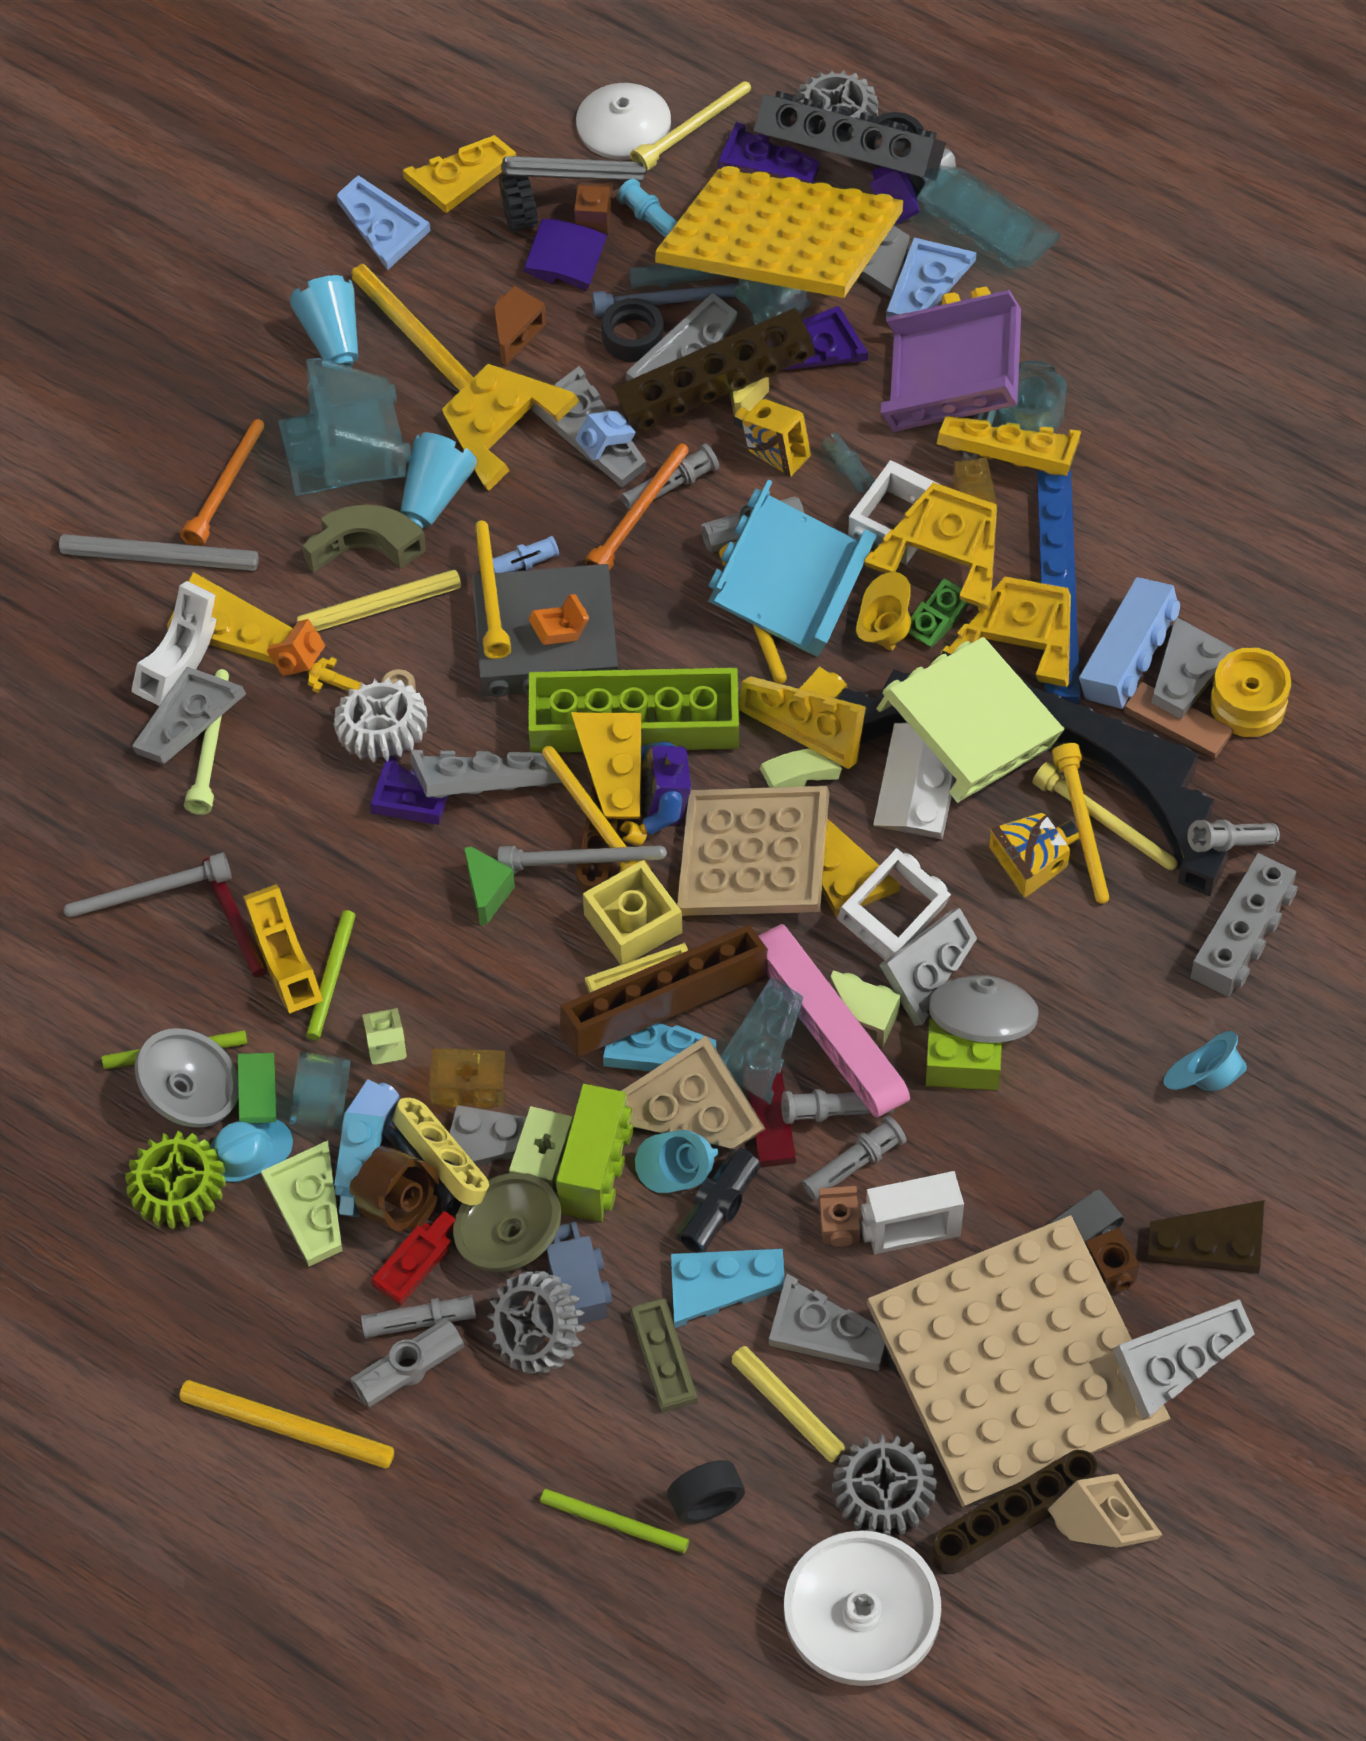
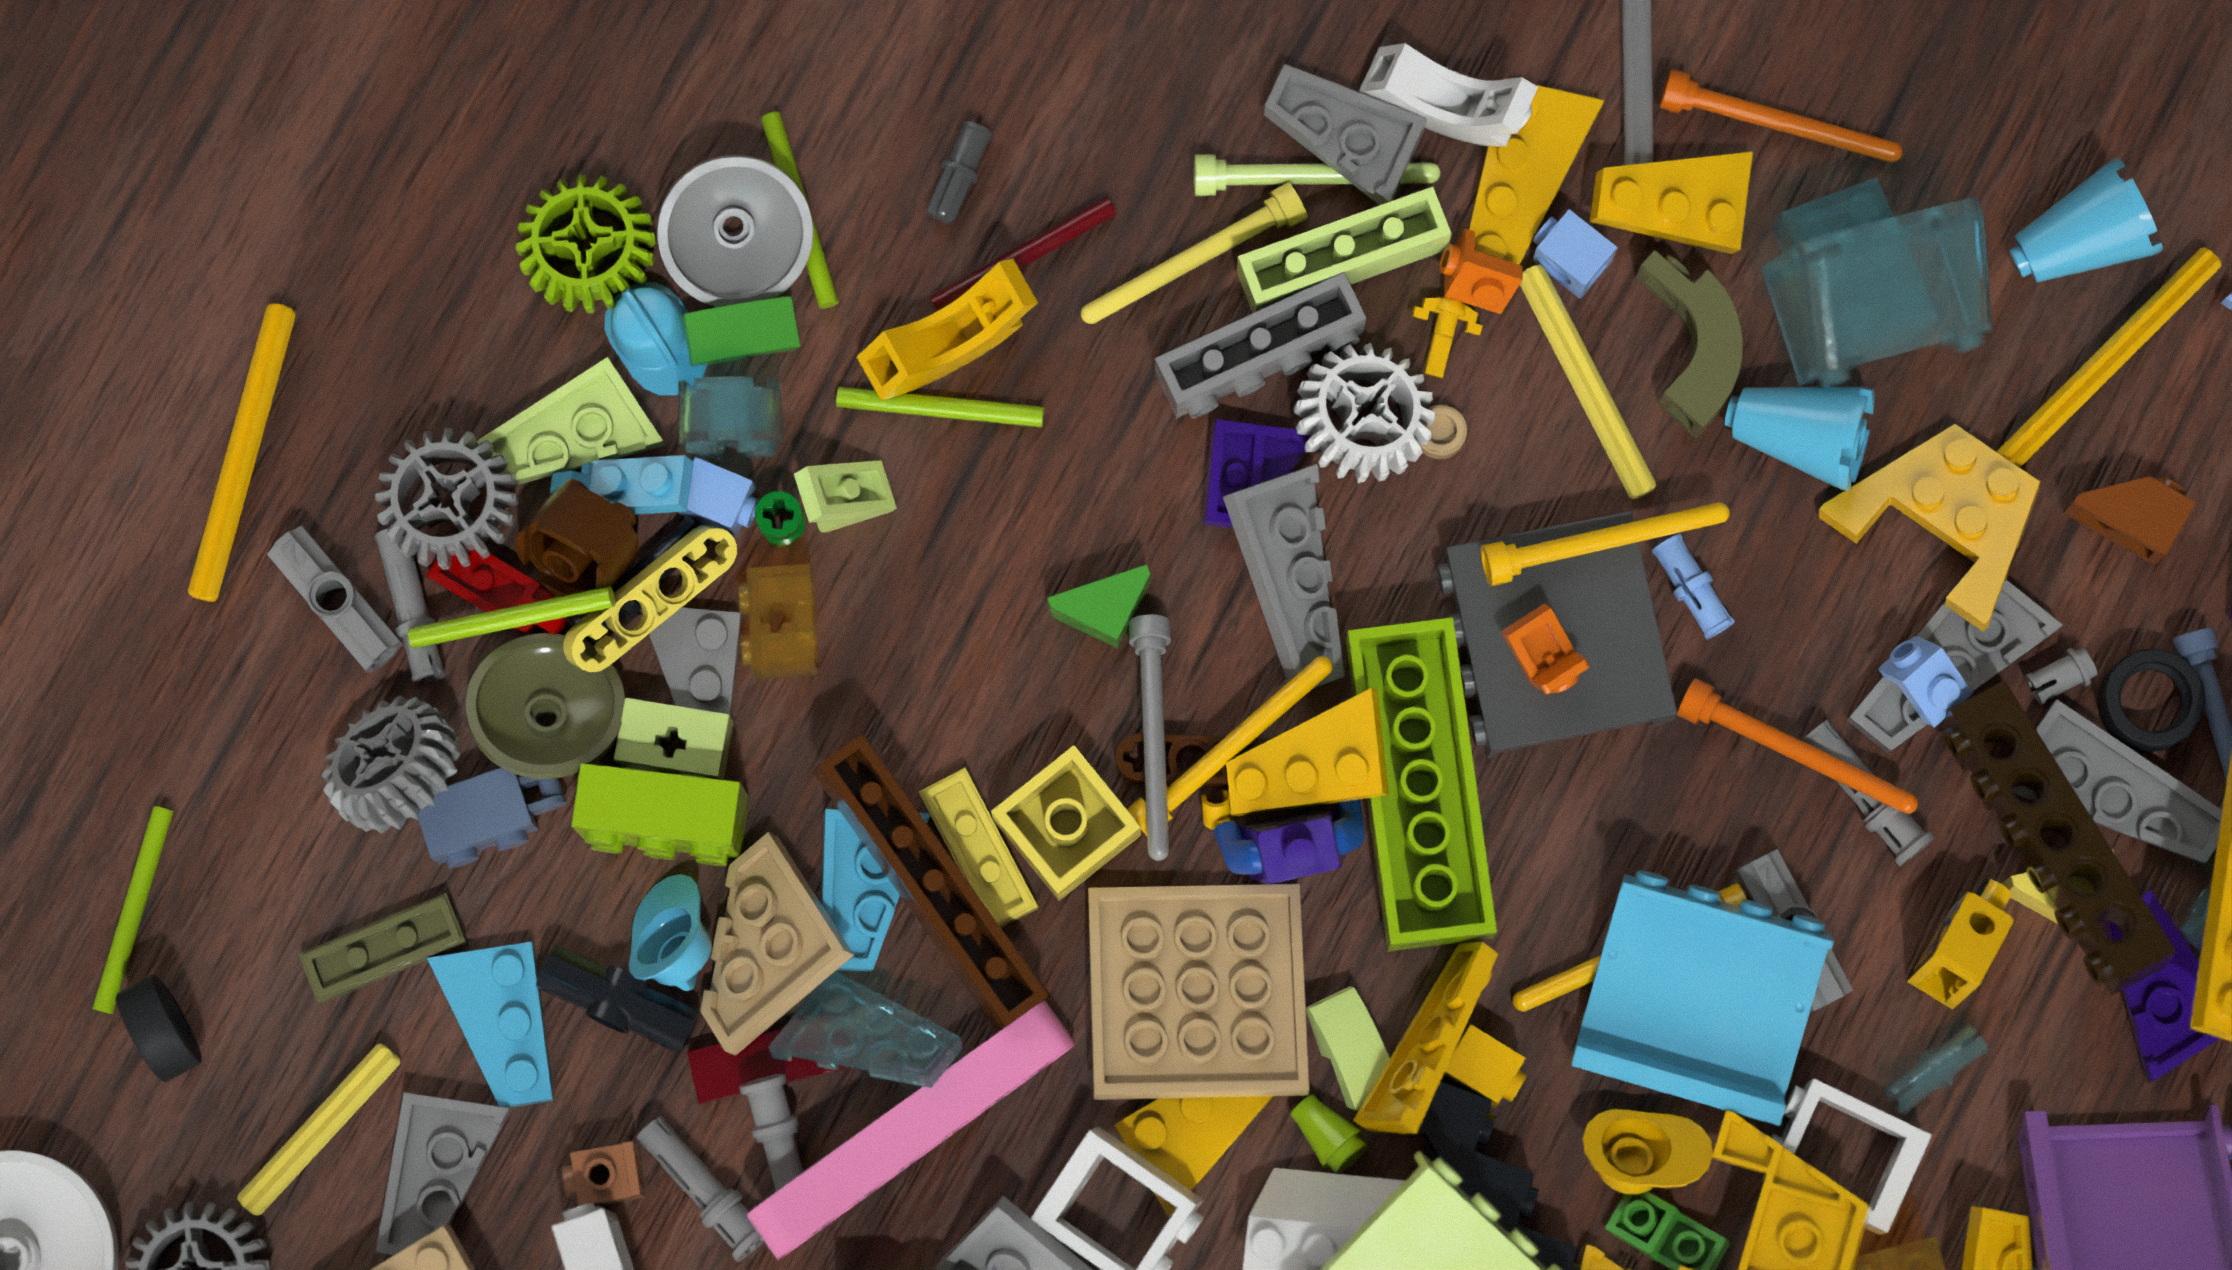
camera: 85 degrees right, 20 degrees up
(167, 947) = (959, 172): none -> dark grey axle
(213, 869) = (1083, 217): light grey piece -> none
(230, 758) = (1279, 210): none -> light yellow piece
(269, 536) = (1677, 200): none -> yellow wing
(270, 720) = (1355, 245): none -> yellowish green brick
(293, 596) = (1573, 252): none -> light blue brick
(324, 1289) = (429, 507): none -> light grey gear
(325, 773) = (1260, 346): none -> light grey brick
(395, 1062) = (769, 507): none -> green bush
(442, 1233) = (511, 617): none -> lime bar
(607, 366) = (2063, 675): none -> light grey pin
(857, 787) = (1330, 1136): none -> lime cone
(871, 1005) = (946, 1181): yellowish green slope -> none

